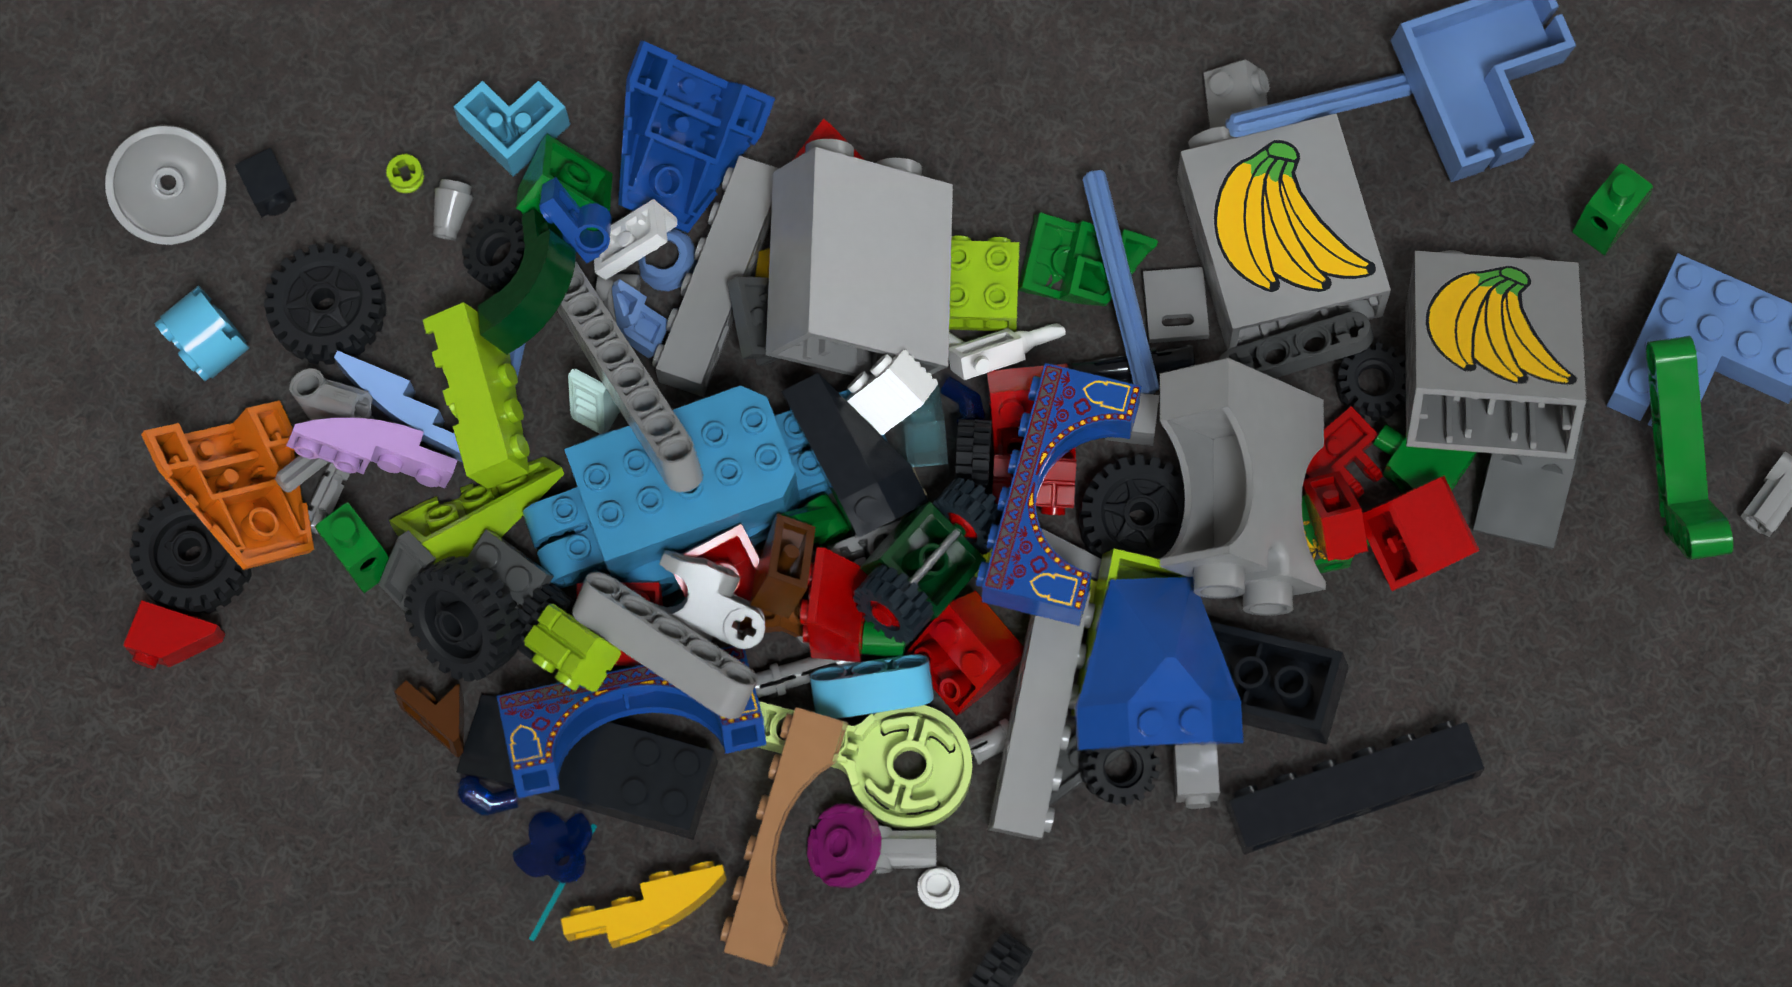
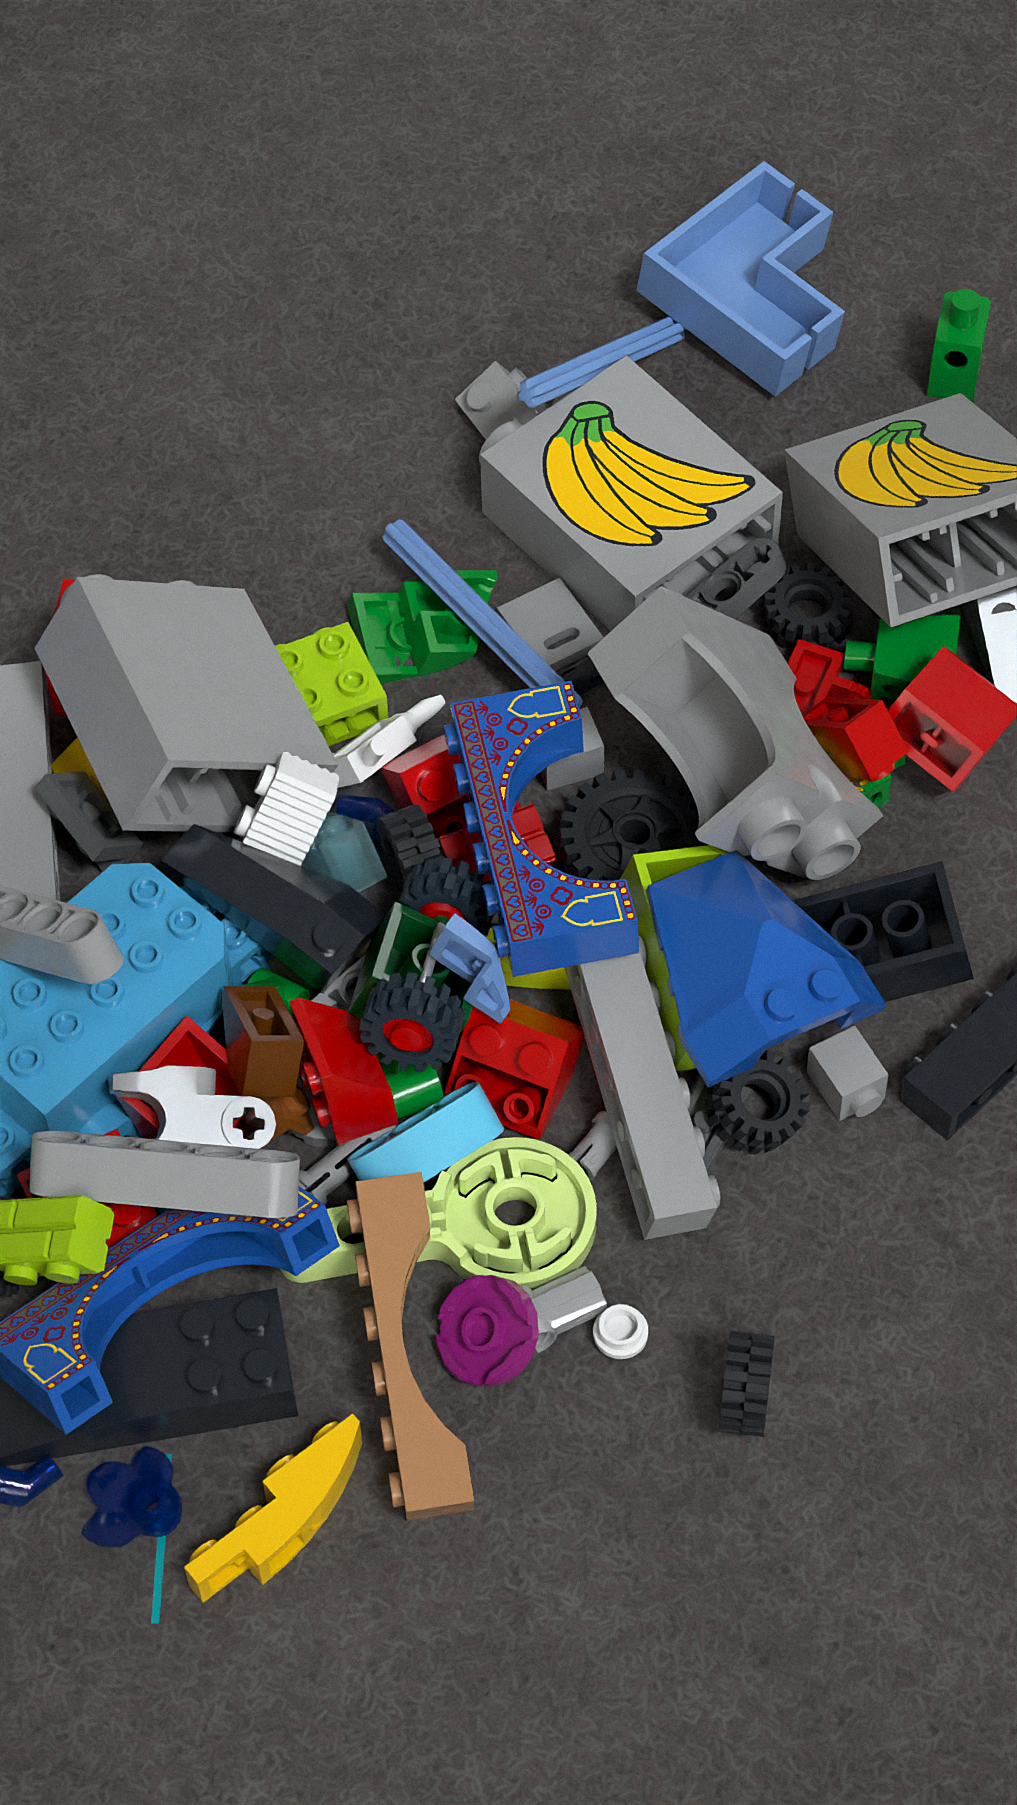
camera: 30 degrees left, 15 degrees down
(961, 574) = (477, 961): none -> medium blue slope

